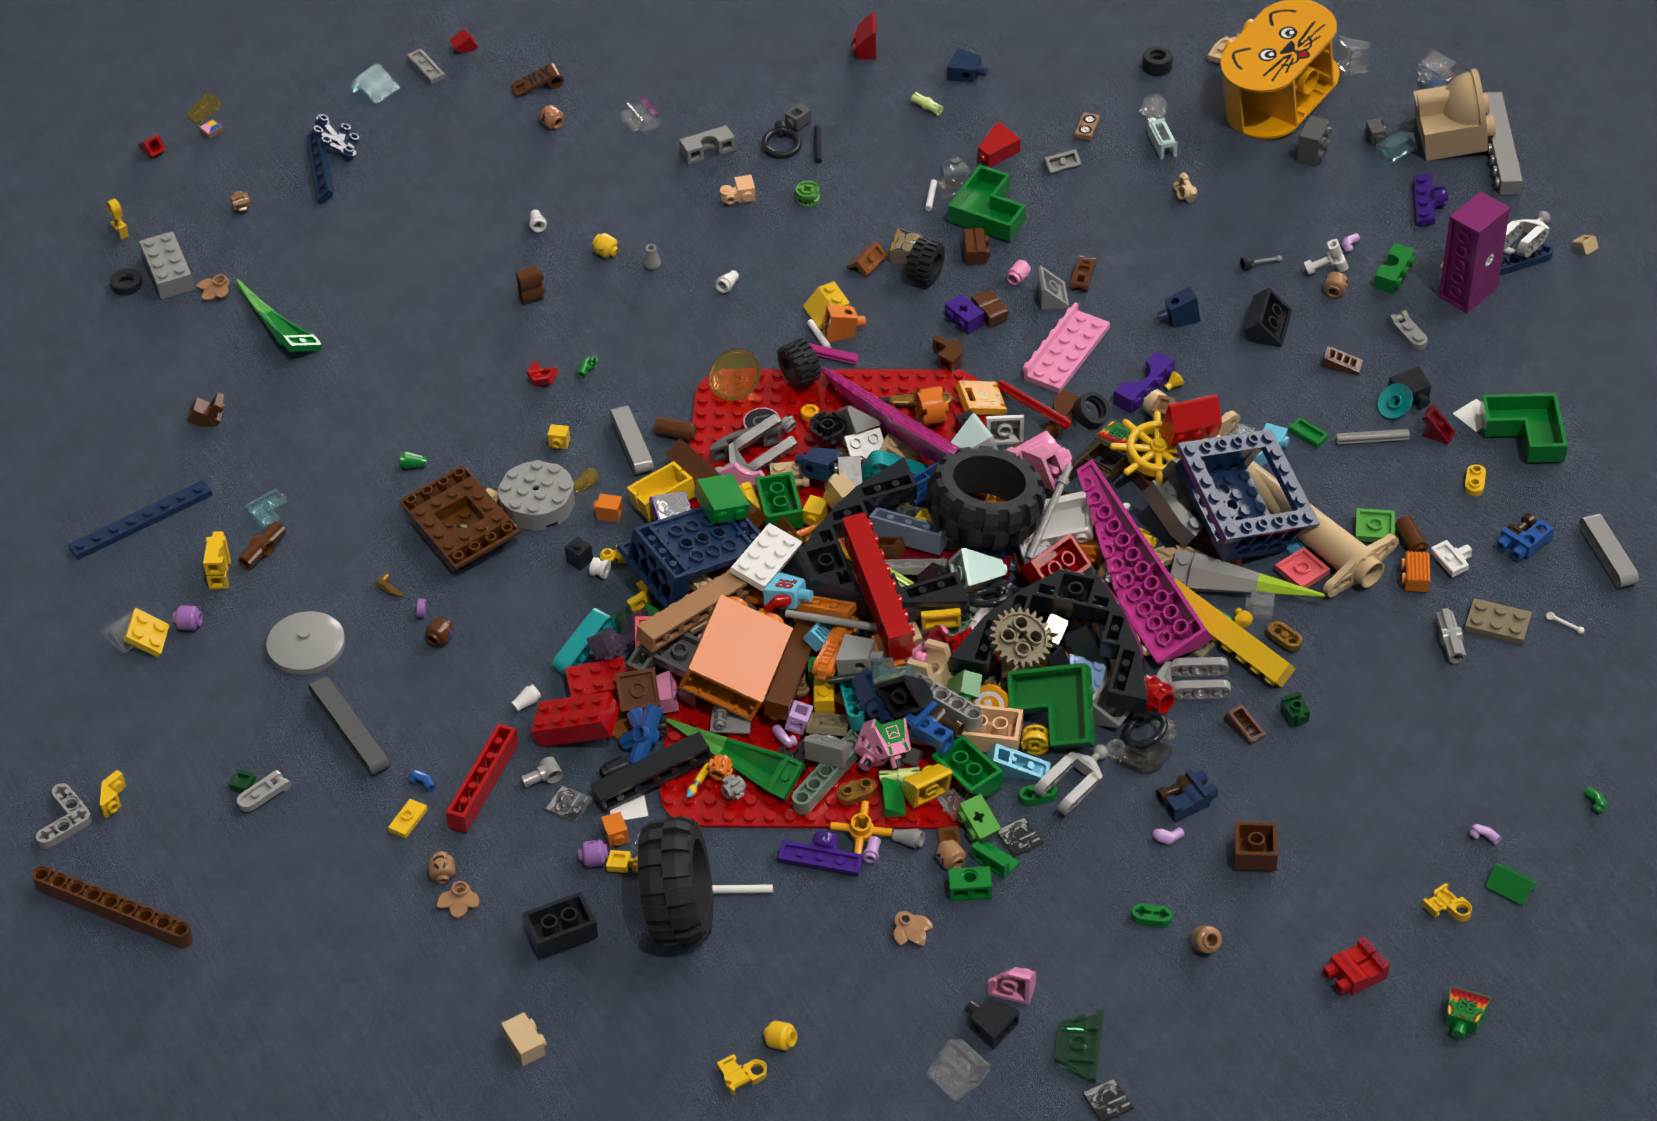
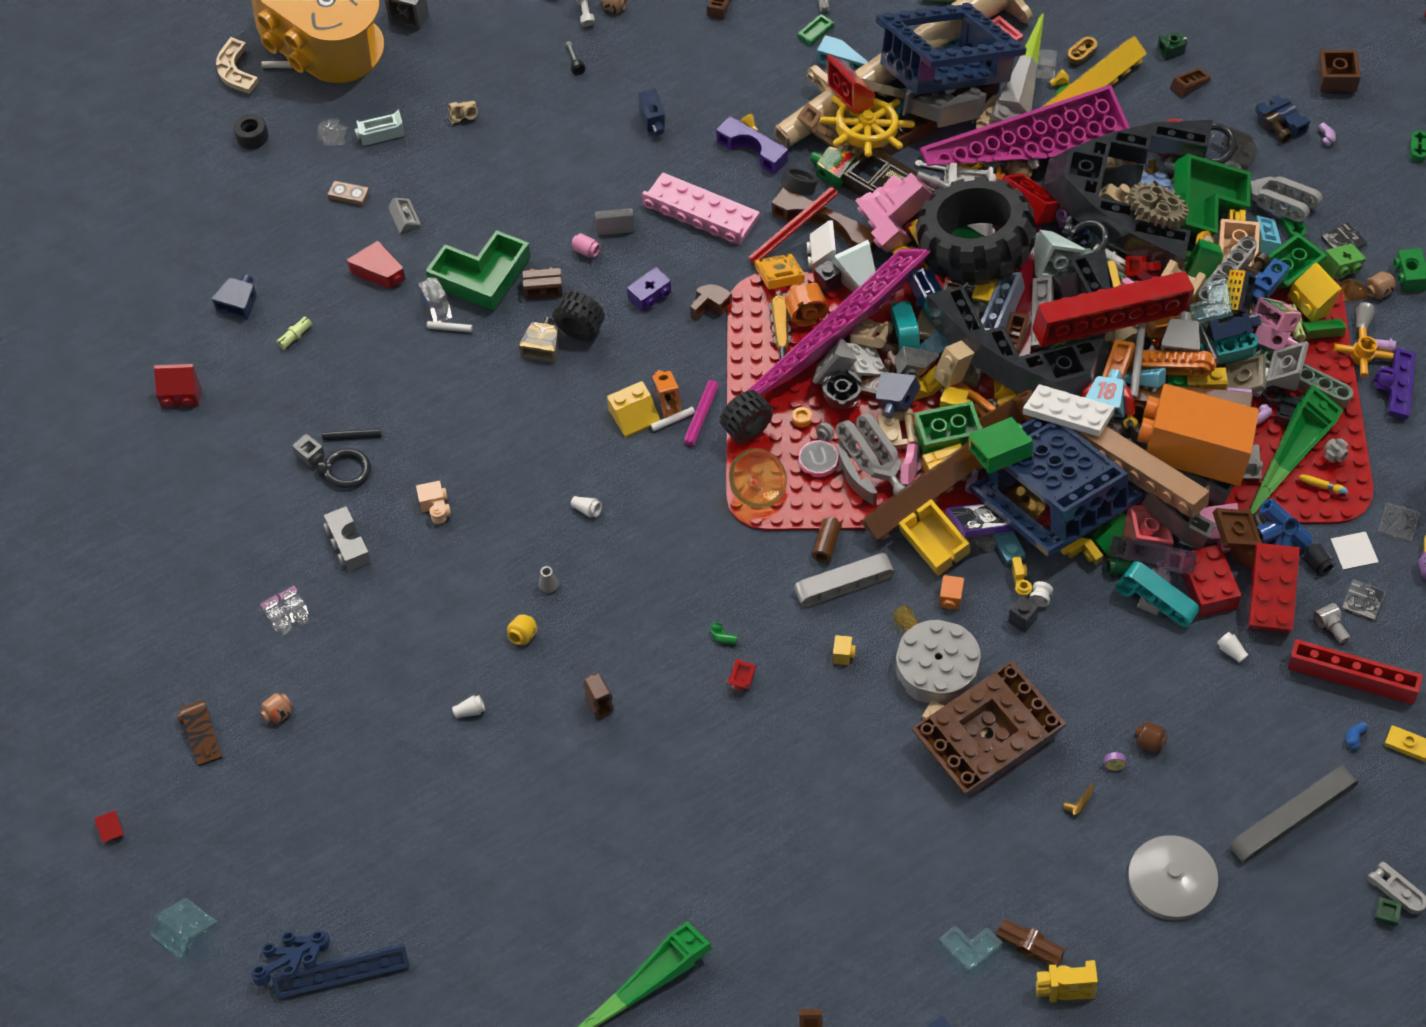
camera: 90 degrees left, 10 degrees up
(187, 618) = (1156, 1005): medium lavender head -> none
(411, 460) = (884, 800): green cone -> none
(426, 66) = (147, 869): light grey tile -> none
(615, 829) = (1397, 552): orange brick -> none
(651, 772) = (1324, 522): black brick -> none
(720, 767) = (1313, 462): orange gear -> none
(807, 192) = (442, 437): bright green wheel -> none
(859, 791) = (1319, 354): pearl gold plate -> none
(868, 258) = (553, 380): dark orange panel -> none
(993, 308) = (635, 268): reddish brown brick -> none
(999, 861) = (1377, 254): green panel -> none
(1083, 271) = (585, 194): reddish brown plate -> none
(1190, 688) = (1153, 104): light grey piece -> none
(1267, 319) = (662, 53): black slope -> none

